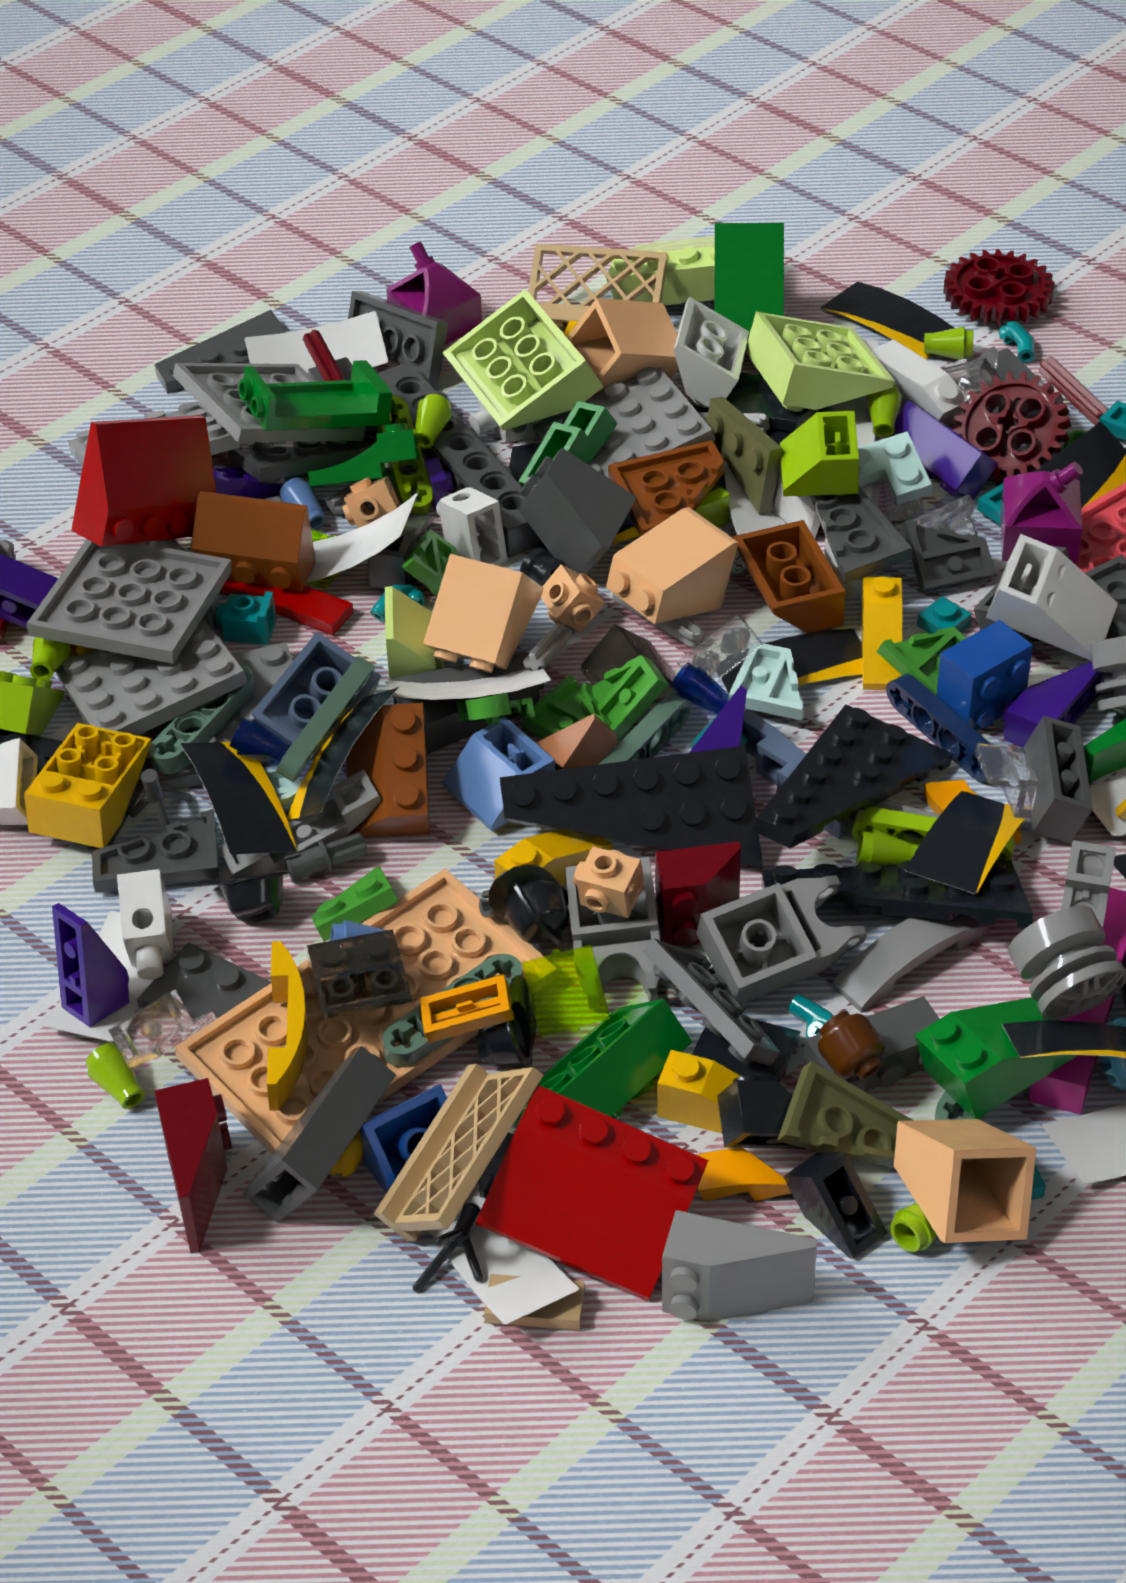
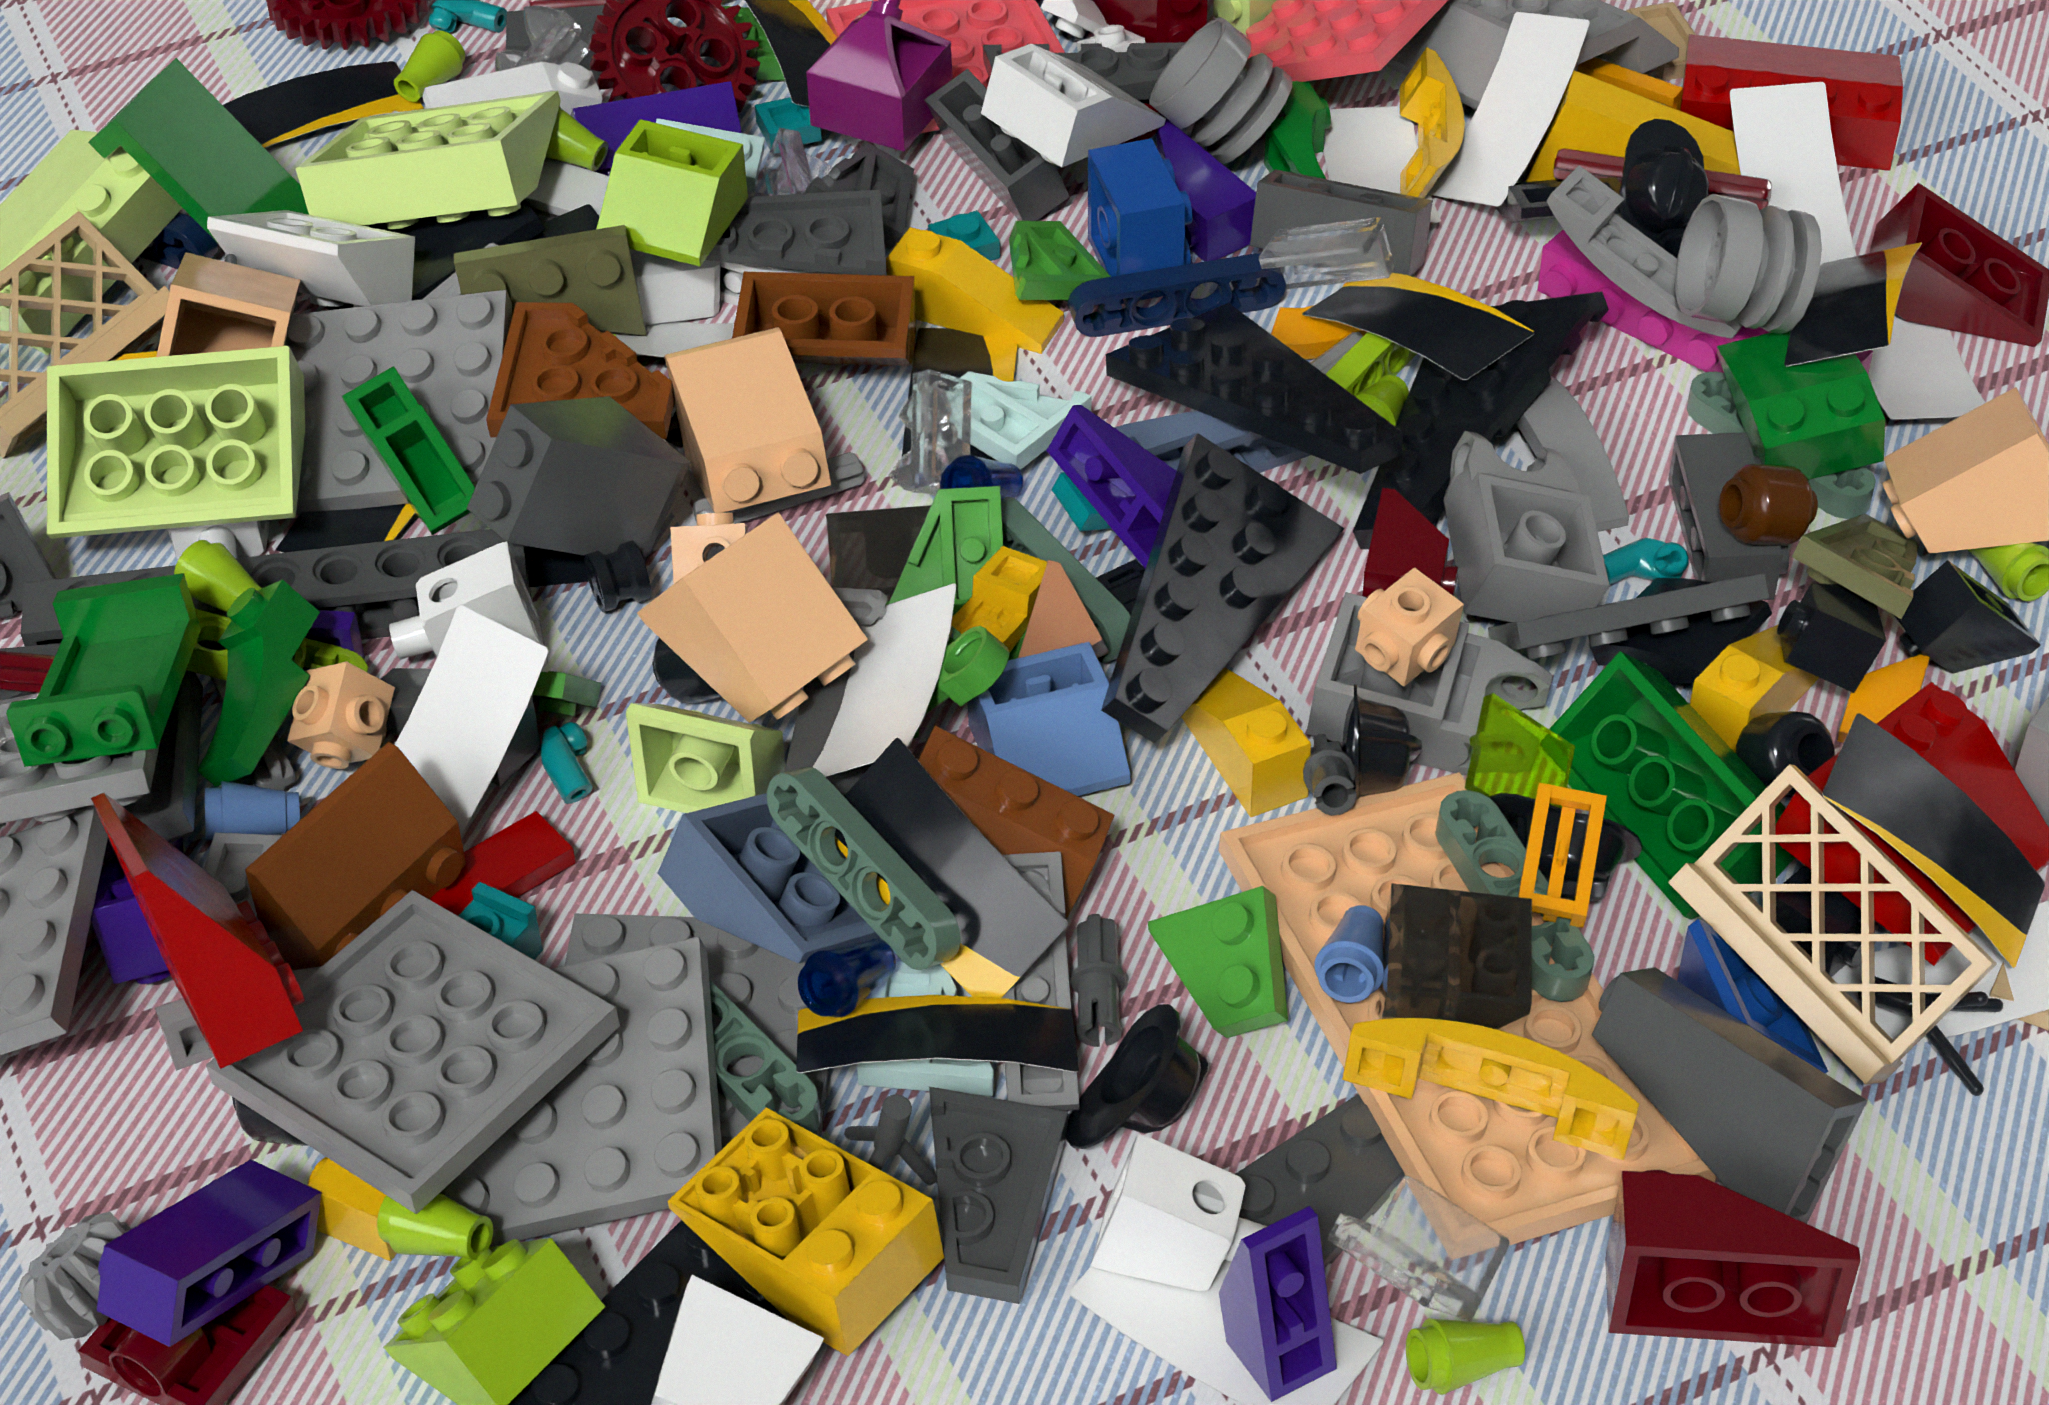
camera: 70 degrees left, 0 degrees up
(552, 1184) = (1937, 831): none -> black sticker
(562, 716) = (1003, 596): none -> yellow slope
(650, 1113) = (1784, 739): none -> black head

